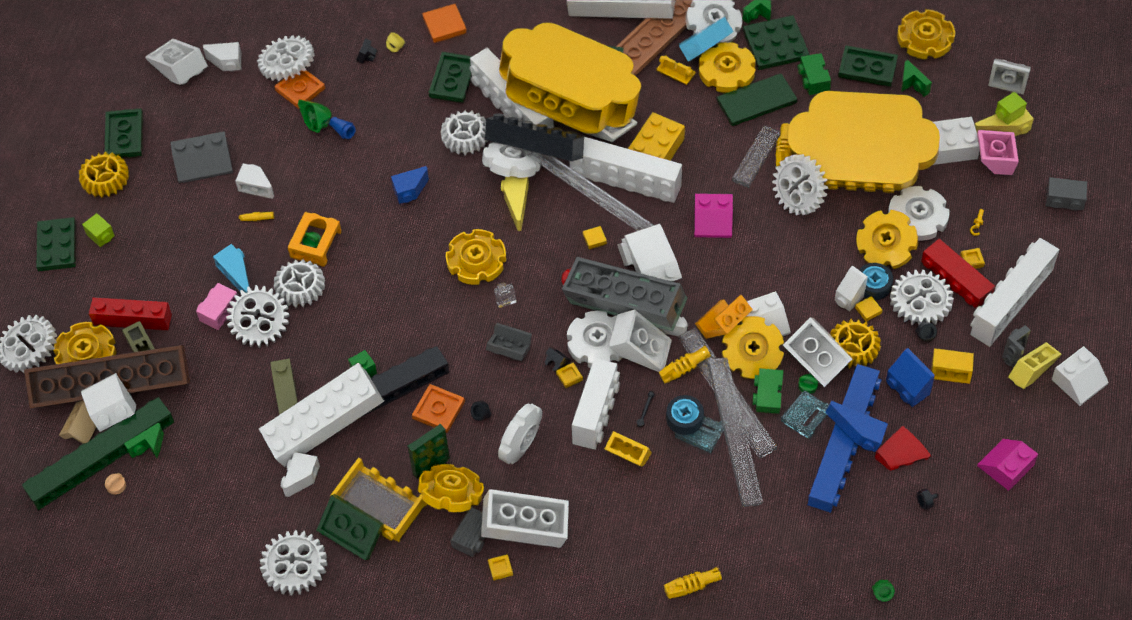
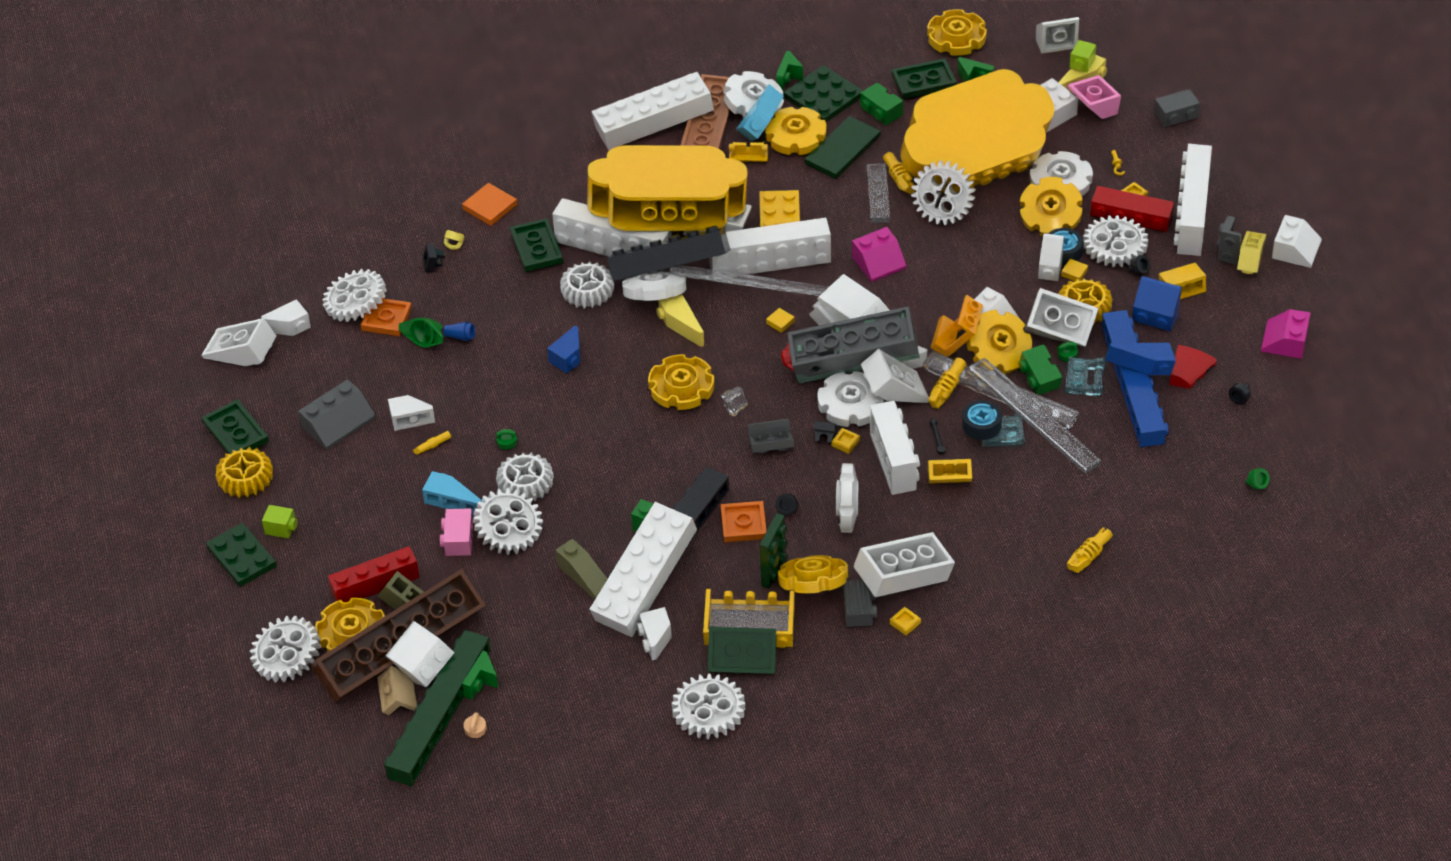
camera: 30 degrees left, 10 degrees down
(318, 254) = (506, 449): light orange panel -> none

